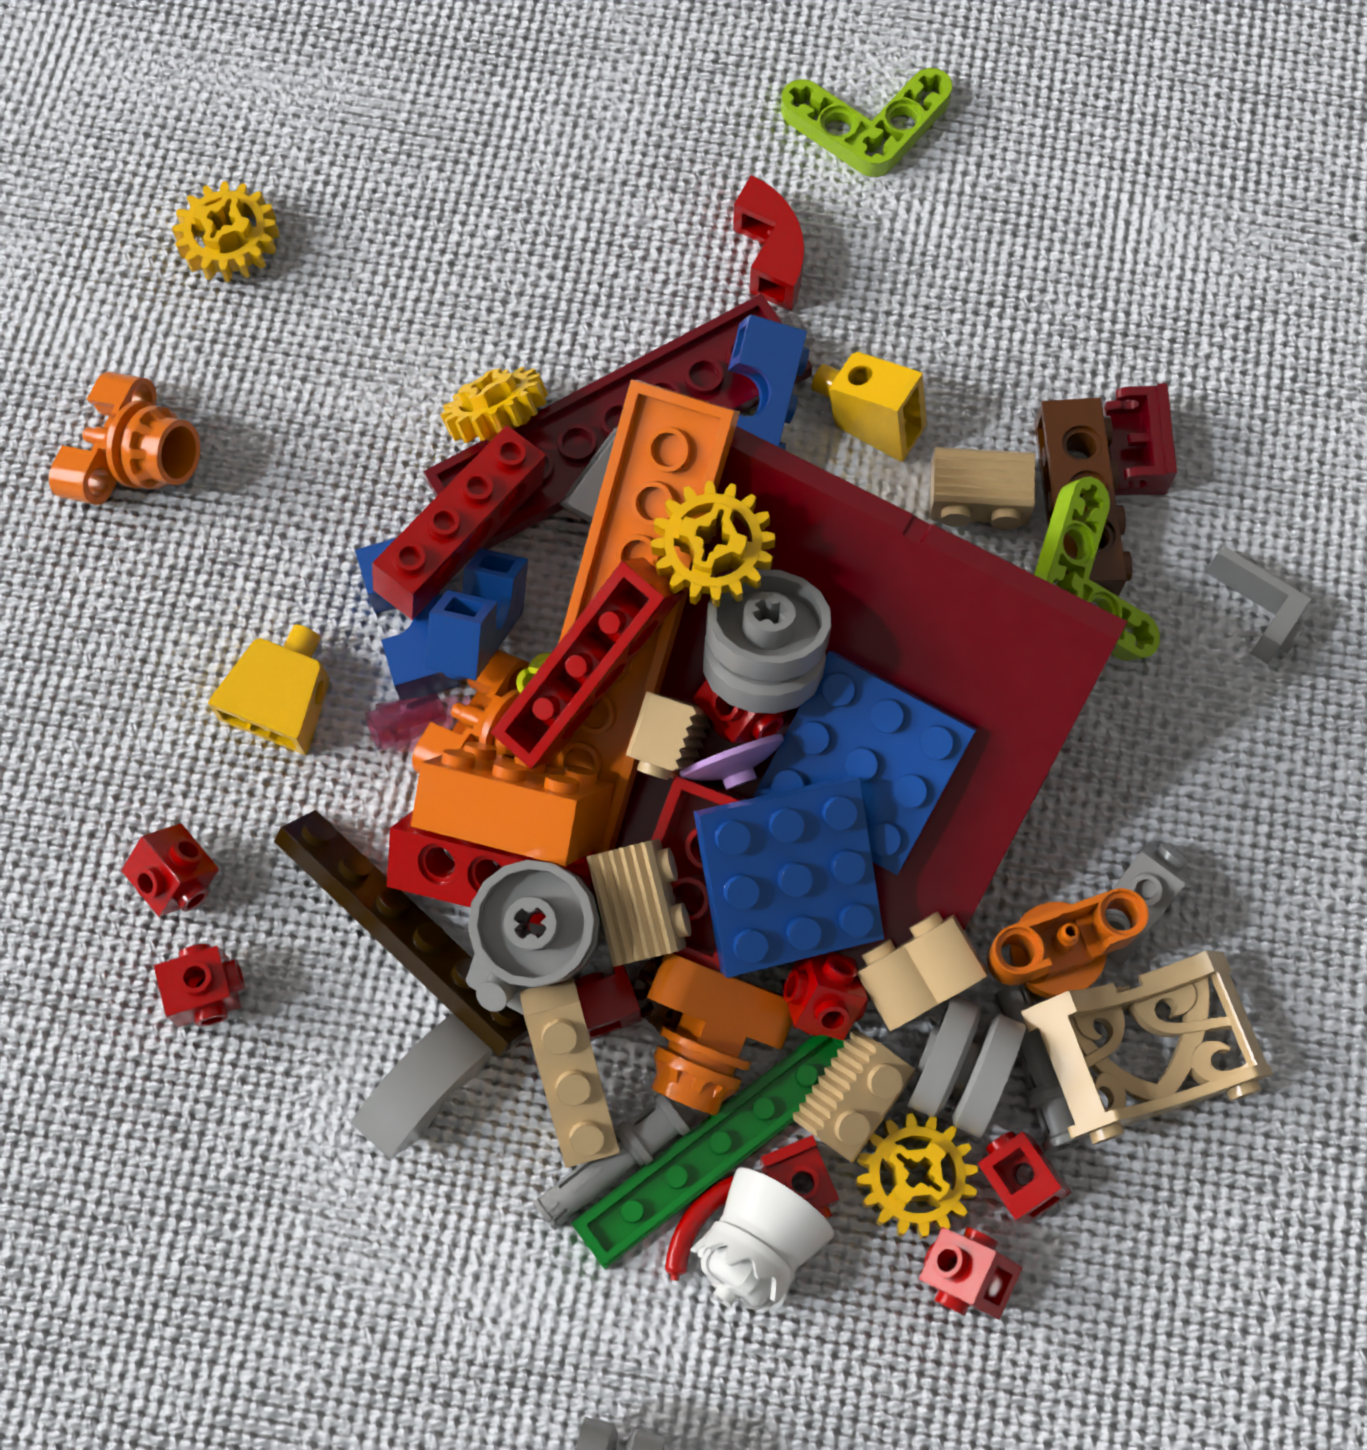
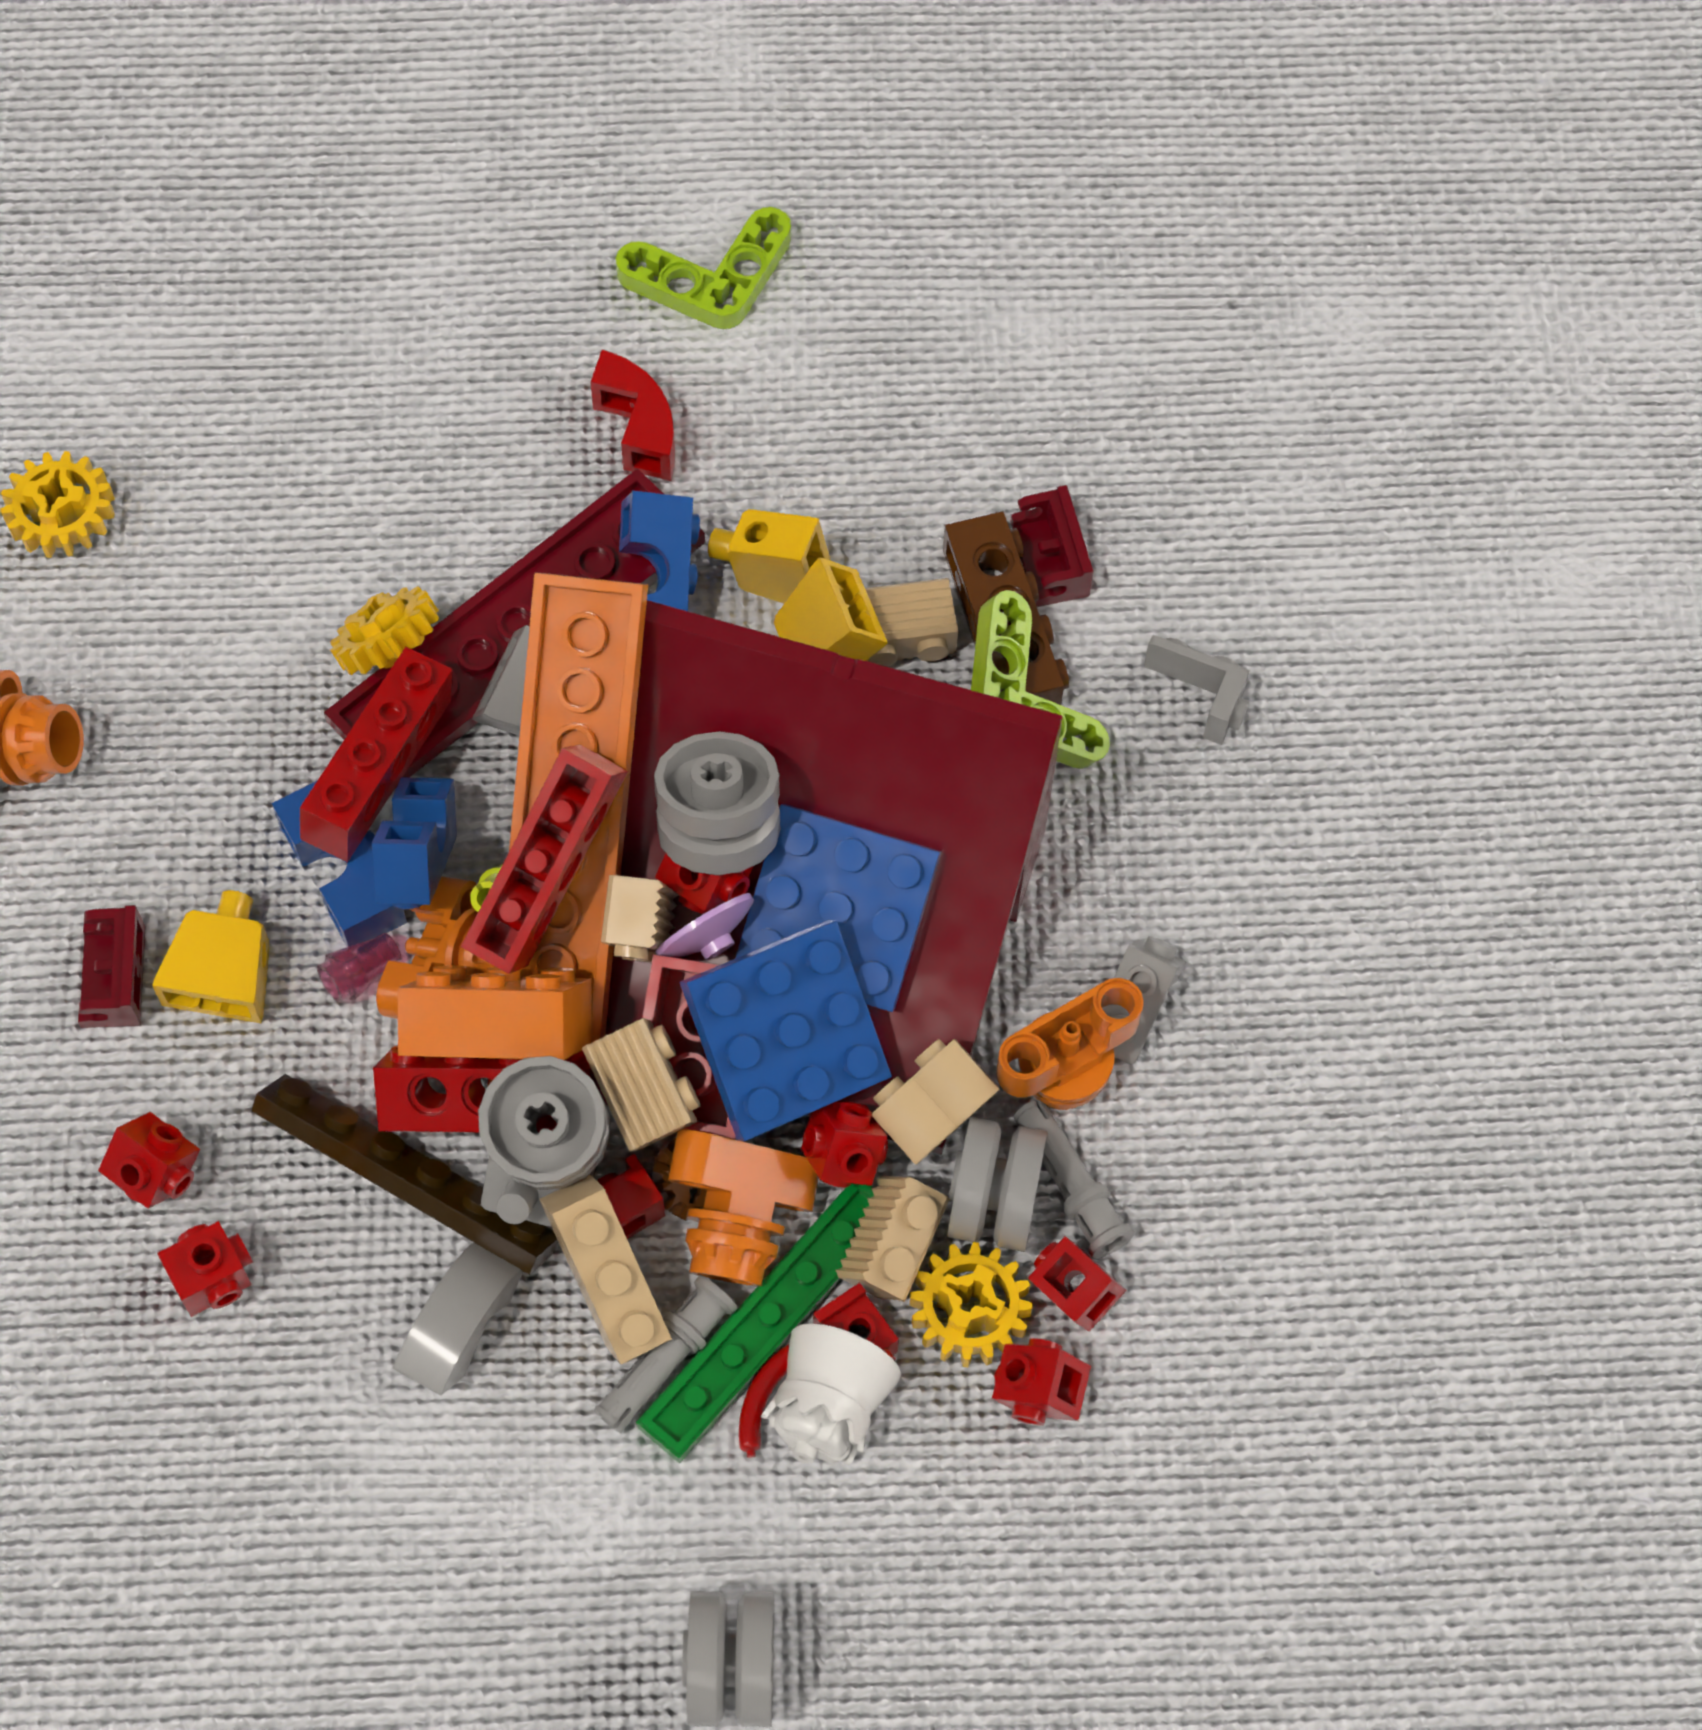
camera: 15 degrees left, 5 degrees down
(180, 677) = (112, 968): none -> dark red hinge
(733, 552) = (626, 710): yellow gear -> none
(915, 469) = (832, 612): none -> yellow torso
(1184, 985) = (1091, 1133): tan fence -> none

